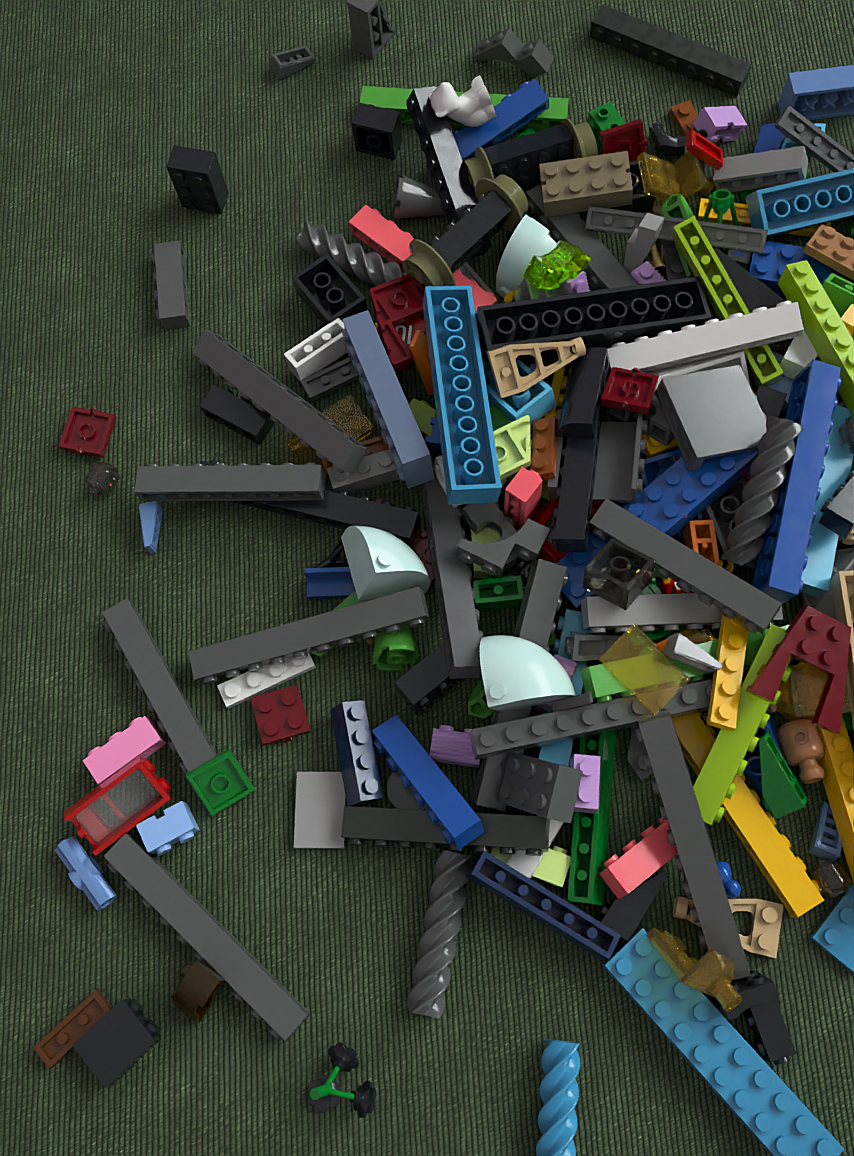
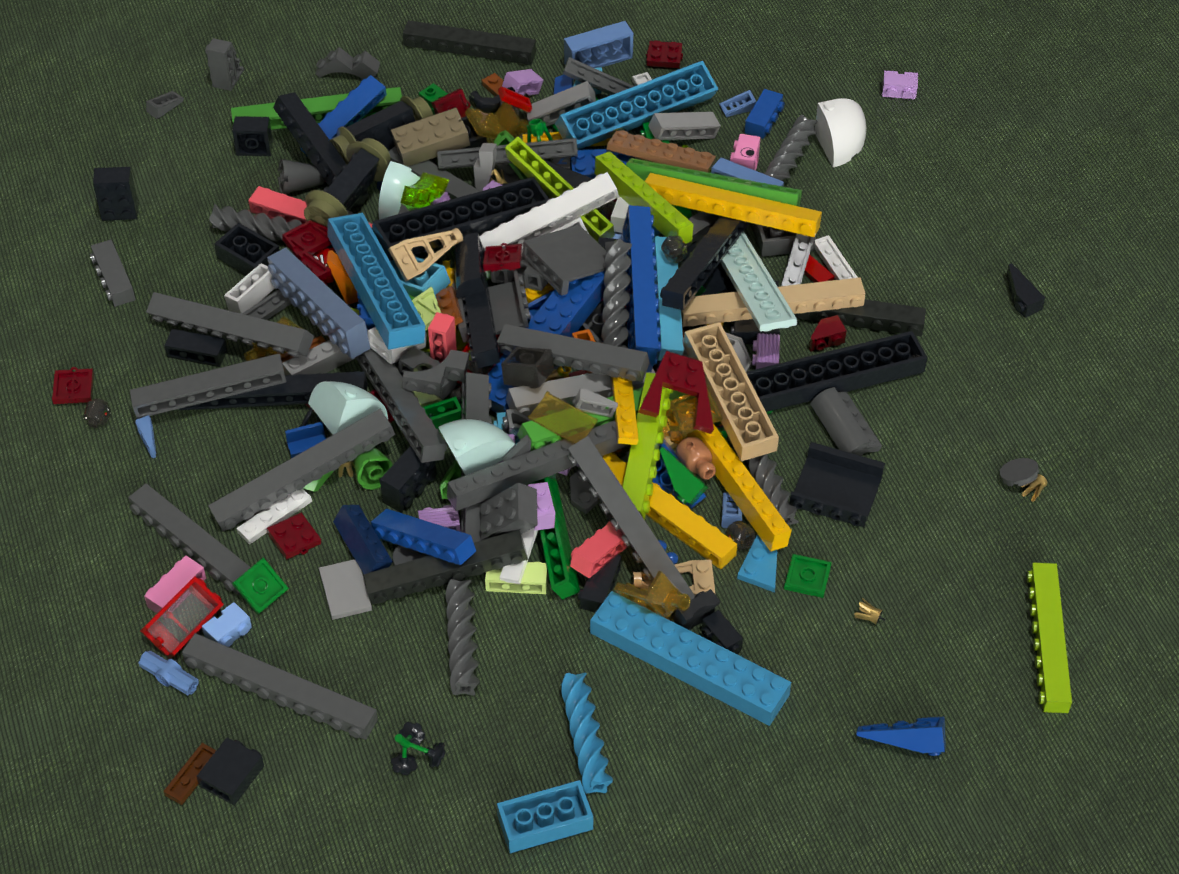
camera: 25 degrees left, 20 degrees down
(197, 990) = (285, 717): dark brown brick -> none
(470, 108) = (325, 103): white animal -> none
(543, 906) = (533, 595): dark blue brick -> none

